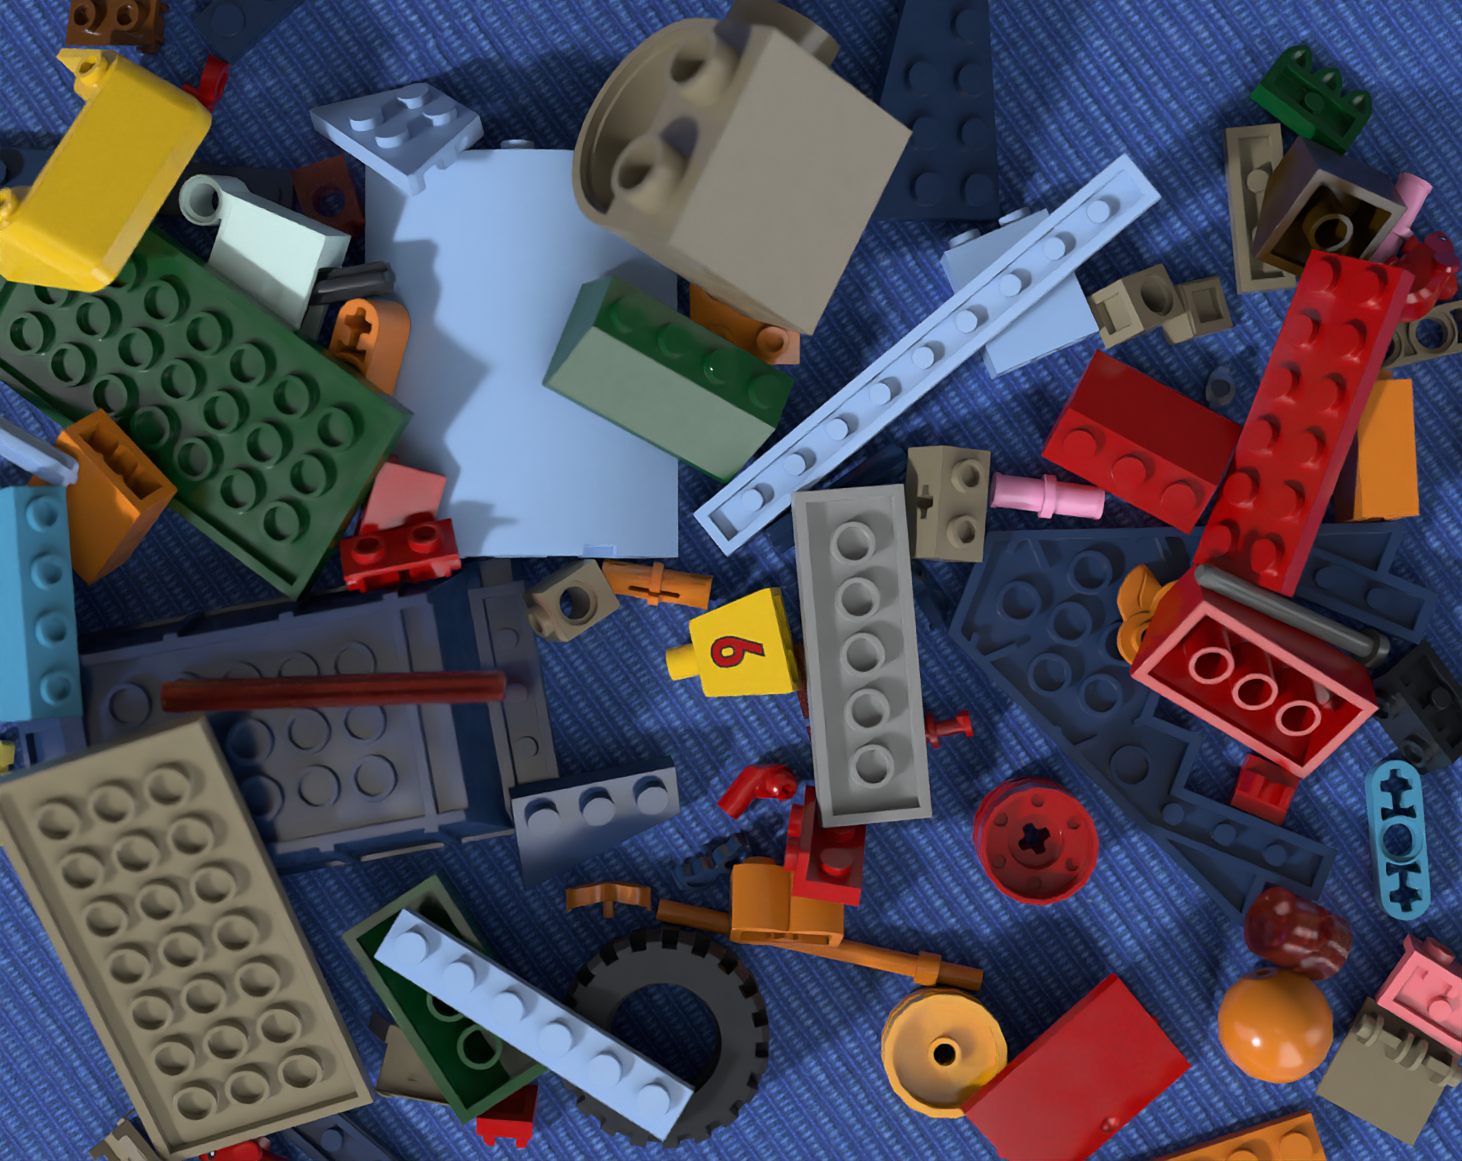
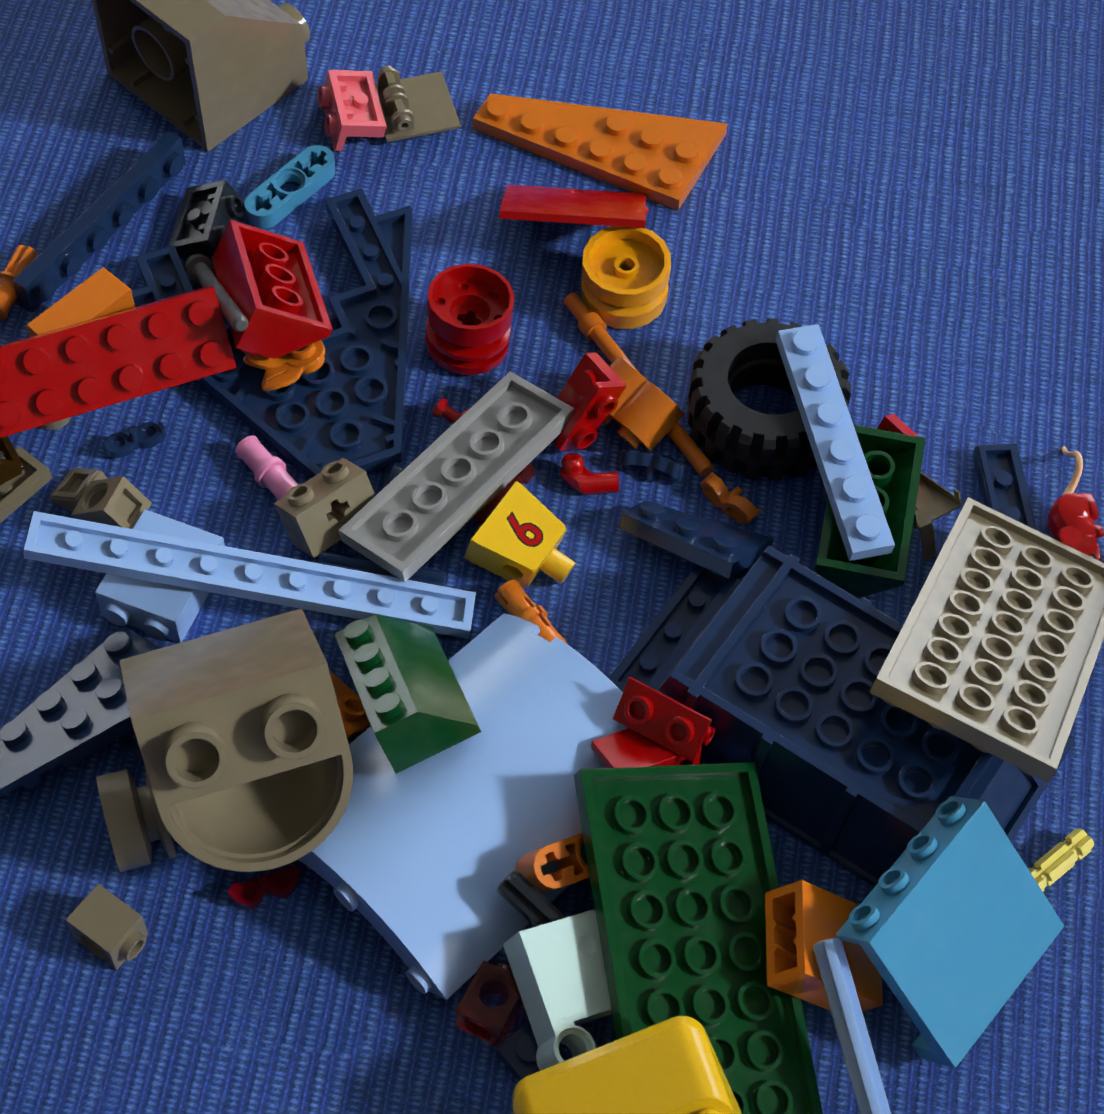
camera: 140 degrees left, 30 degrees down
(333, 691) = (782, 669): clear red axle -> none
(401, 131) = (405, 983): light blue wing -> none
(590, 598) = (595, 638): dark tan brick -> none
(1142, 441) = (191, 445): red slope -> none
(1263, 789) = (328, 257): red tile -> none
(1275, 1024) = (445, 155): orange piece -> none
(1297, 934) = (389, 178): clear red wheel -> none

